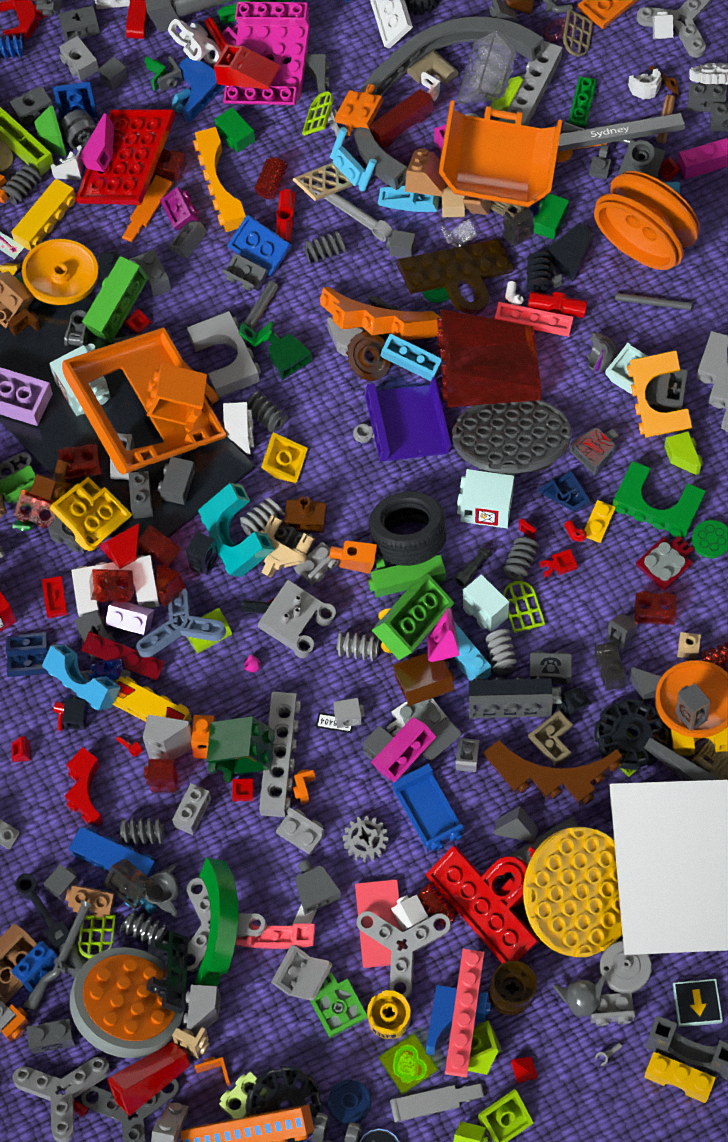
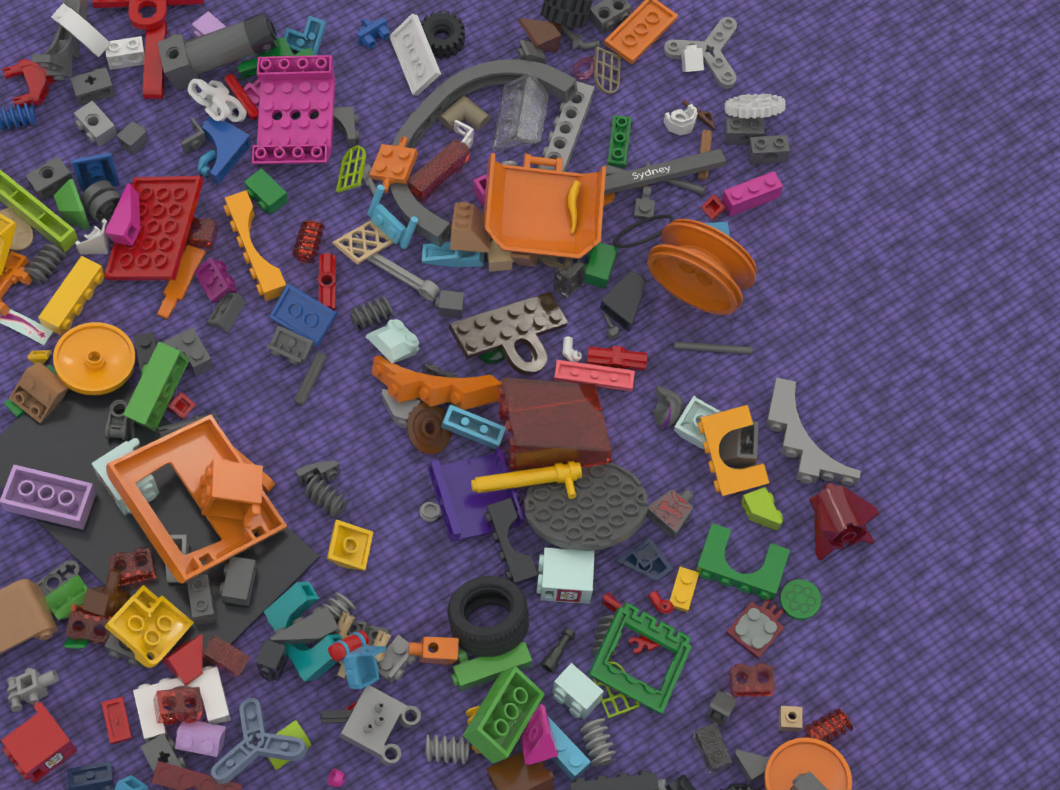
camera: 15 degrees left, 0 degrees up
(23, 320) = (55, 416): reddish brown bracket -> none
(156, 67) = (180, 130): green bracket -> none
(168, 584) = (239, 697): clear red slope -> none
(224, 330) = (274, 410): light grey arch -> none
(236, 526) = (308, 629): none -> dark grey slope
(239, 425) = (299, 515): white slope -> none
(244, 68) = (272, 127): red slope -> none
(256, 338) = (310, 415): green bracket -> none
(268, 387) = (327, 470): none -> dark grey slope
(280, 555) = (357, 658): none -> dark azure piece
(288, 354) = (343, 431): dark green torso -> none
(306, 515) = (378, 607): reddish brown brick -> none
(344, 274) = (395, 341): none -> light aqua slope
(431, 441) = (519, 566): none -> black arch
(460, 234) = (510, 289): clear bracket -> none
(489, 404) = (558, 473): none -> yellow cylinder
(510, 93) = (542, 147): lime window -> none
(529, 148) = (572, 198): none -> yellow animal
(530, 598) = (626, 684): none -> green hinge
(538, 272) = (593, 325): black piece -> none
(551, 666) = (651, 756): dark grey brick -> none
(568, 197) = (637, 224): none -> black piece
(651, 157) = (679, 208): dark grey plant -> none

